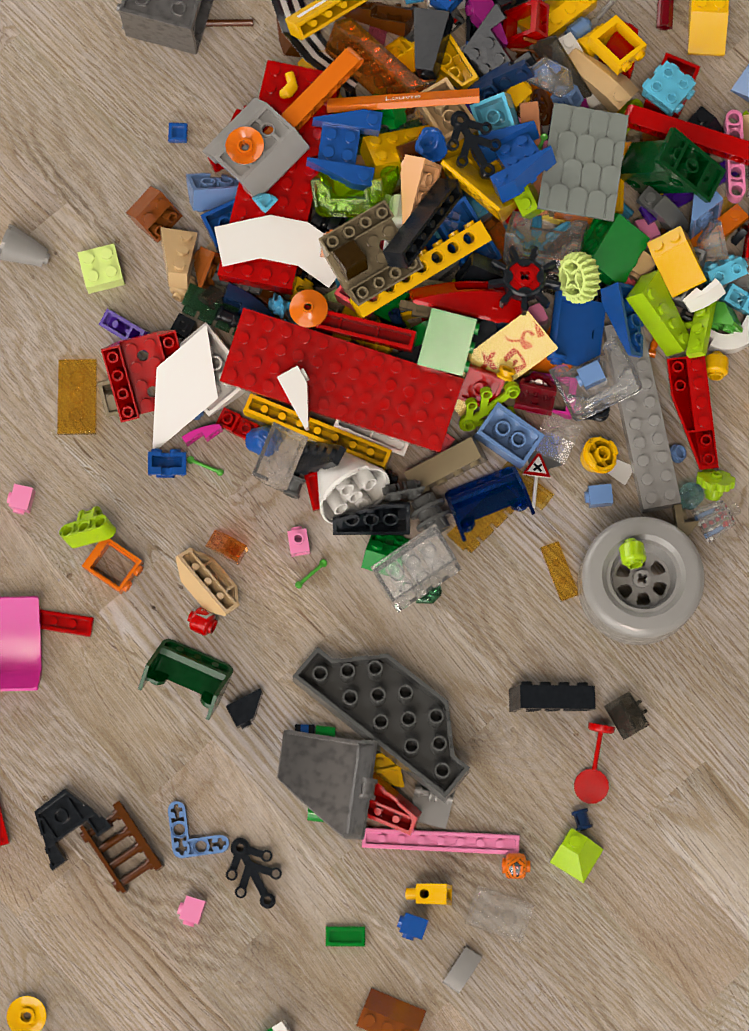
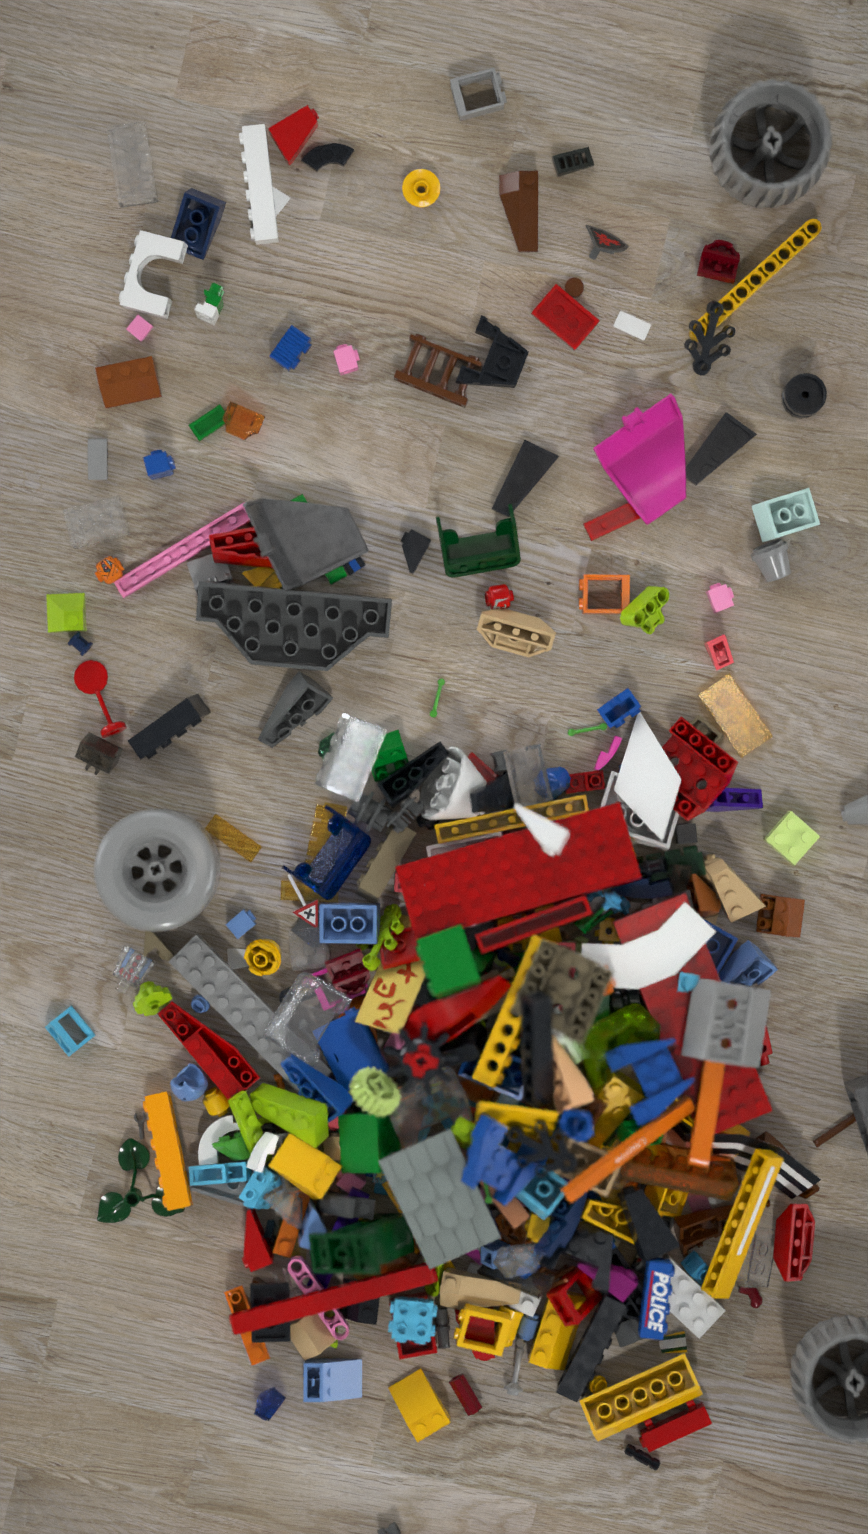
camera: 140 degrees right, 10 degrees up
(53, 456) = (719, 652): none -> coral slope
(107, 711) = (524, 474): none -> black wing
(178, 133) = (810, 1002): blue tile -> none
(191, 843) = (385, 412): medium blue beam -> none
(227, 547) = (521, 672): clear orange slope -> none
(233, 952) = (291, 348): none -> blue brick
(241, 137) = (741, 1021): orange dish -> none
(251, 869) = (320, 424): black plant -> none
(291, 86) = (734, 1098): yellow arm -> none
(298, 541) = (465, 717): bright pink brick -> none
(311, 317) = (575, 912): orange dish -> none
(316, 917) = (241, 421): none -> clear orange slope
(351, 259) = (575, 973): dark brown piece -> none
(430, 646) = (297, 703): none -> dark grey wedge
(438, 894) = (156, 506): yellow torso -> none
(505, 373) = (385, 971): yellow bush -> none
(590, 375) = (313, 1018): medium blue brick -> none
(632, 553) = (174, 881): lime head -> none
(648, 70) = (442, 1328): none -> dark grey pin
(691, 495) = (164, 974): clear light blue head -> none
(728, 393) = (189, 1083): none -> medium blue piece

